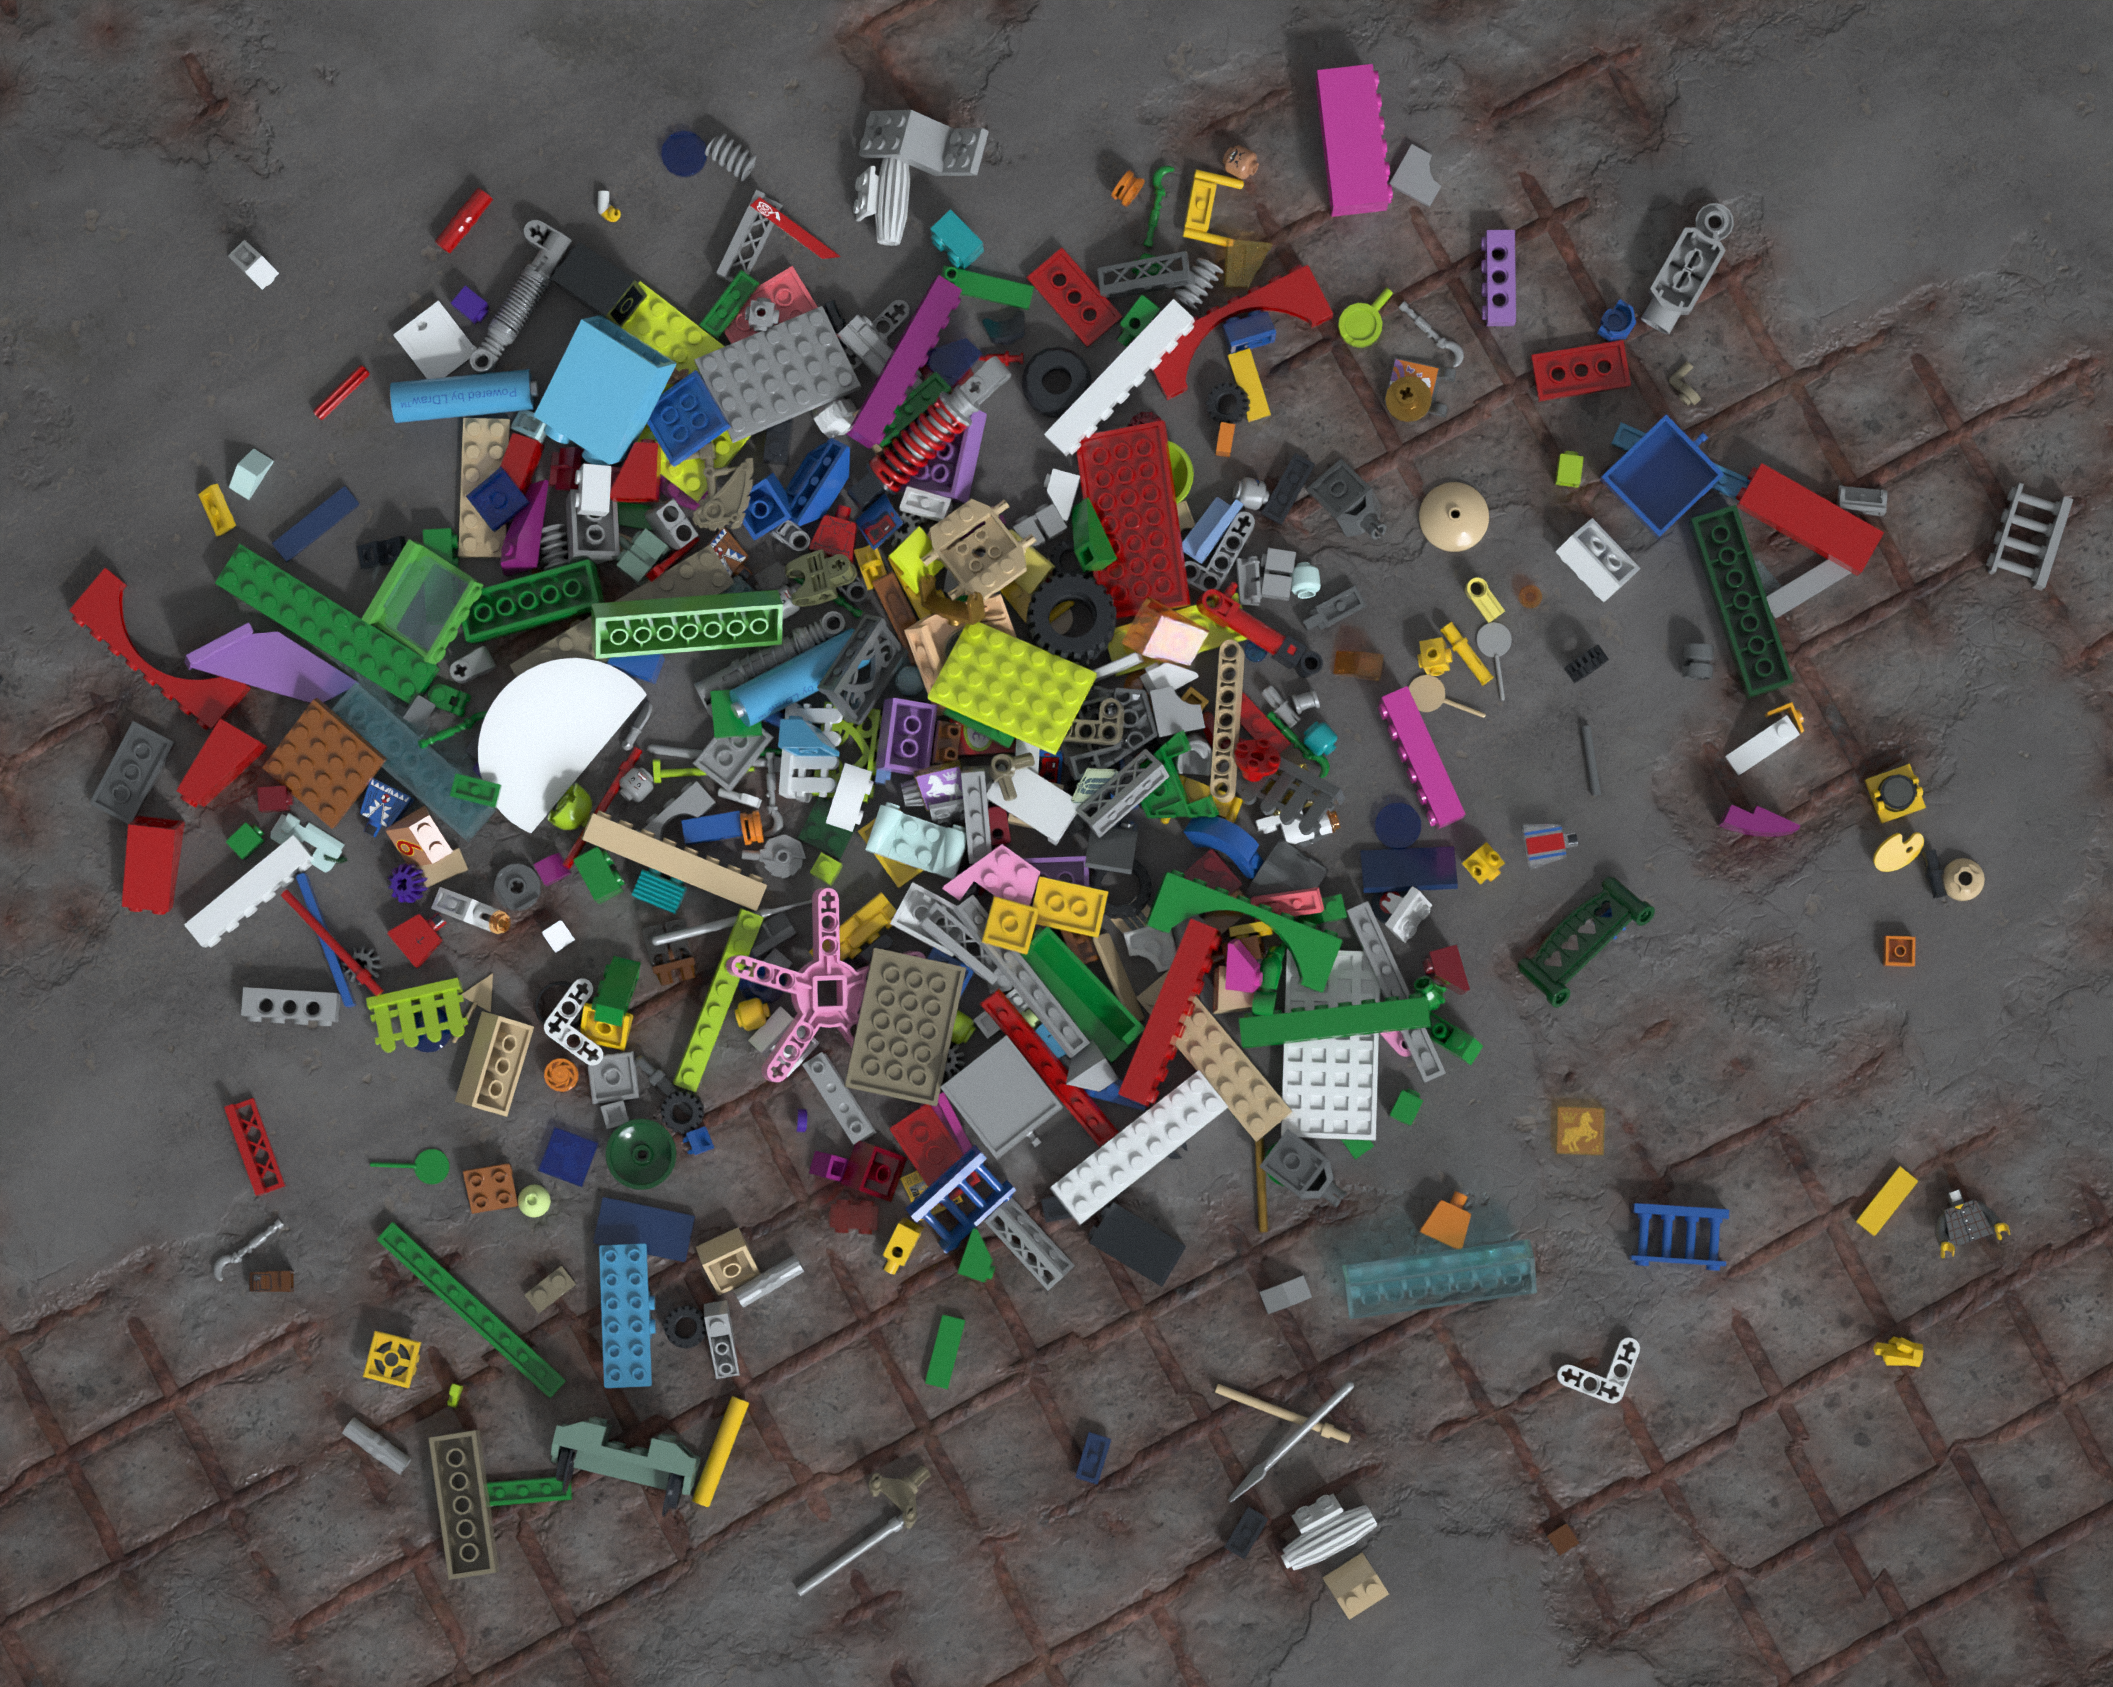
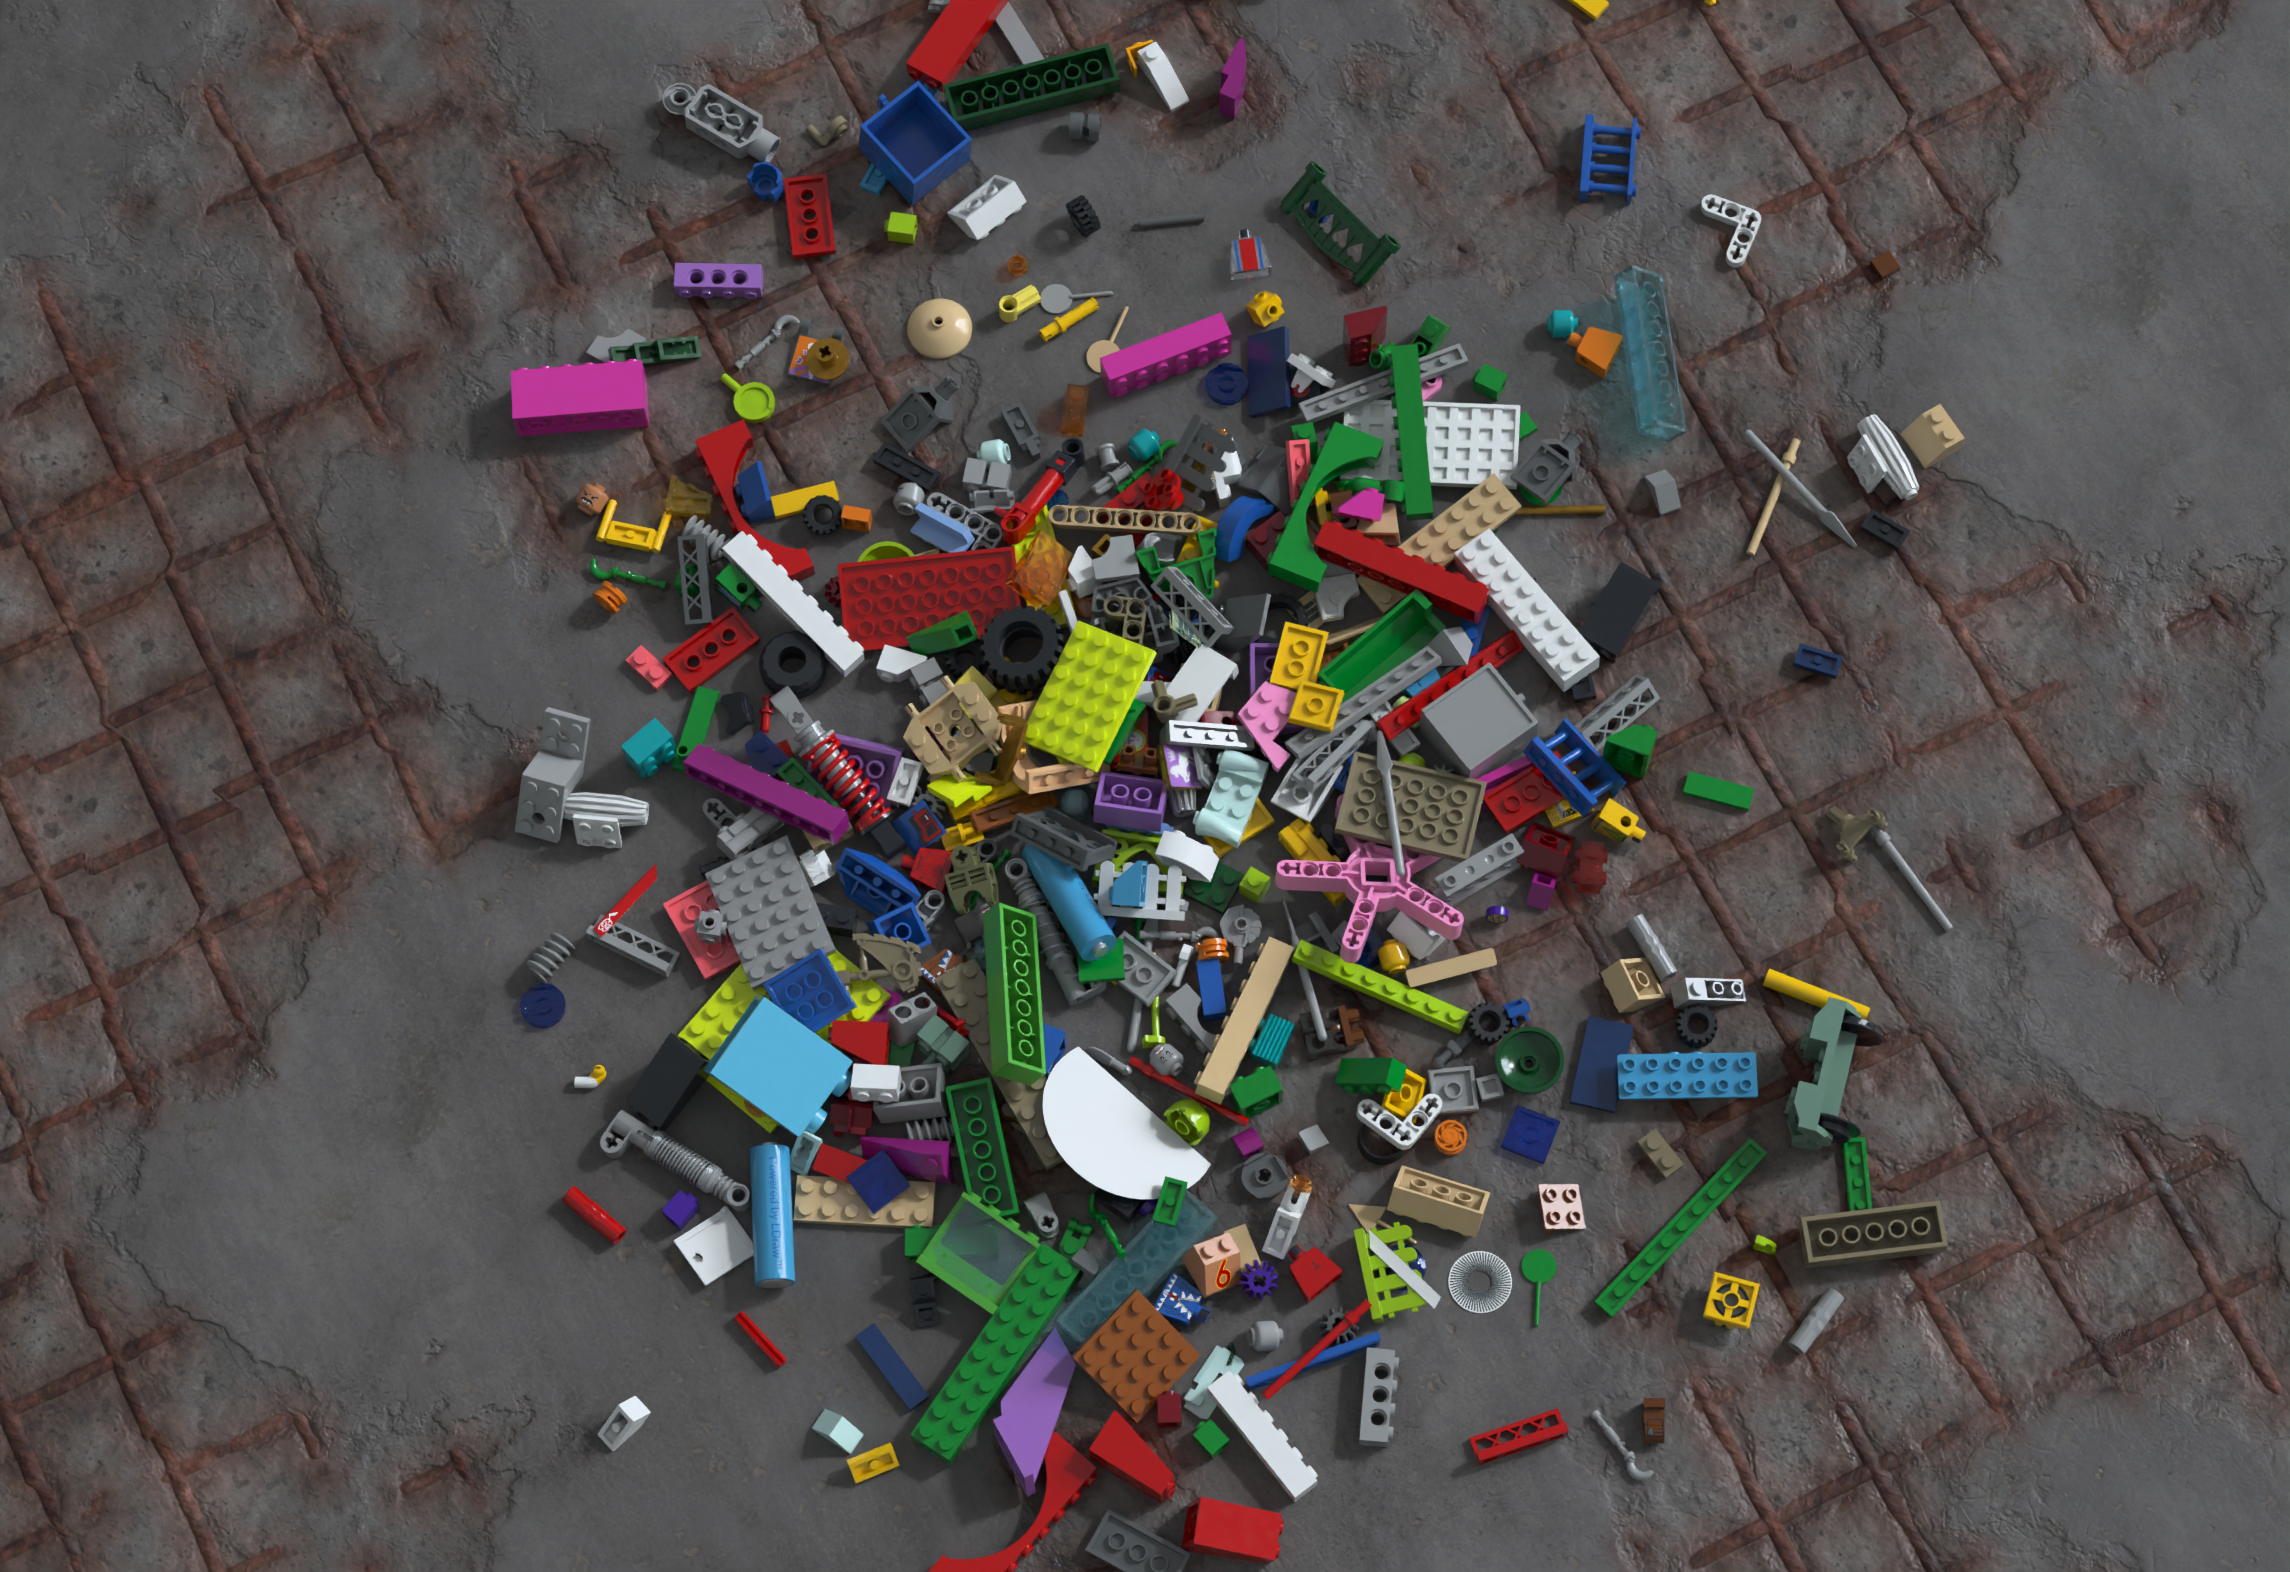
camera: 90 degrees left, 15 degrees down
(351, 891) = (1264, 1336): none -> light grey head
(417, 1028) = (1403, 1270): none -> white sticker
(435, 1107) = (1474, 1301): none -> sticker
(534, 1200) = (1573, 1168): yellowish green brick -> none
(729, 304) = (697, 961): green tile -> none
(742, 1072) = (1450, 967): none -> tan slope
(948, 999) = (1384, 765): none -> light grey piece
(1054, 235) = (649, 668): none -> coral plate
(1411, 216) = (659, 351): none -> dark green slope
(1434, 656) = (1071, 344): yellow brick -> none
(1477, 1184) = (1561, 323): none -> teal head
(1580, 1131) = (1512, 239): clear yellow tile -> none

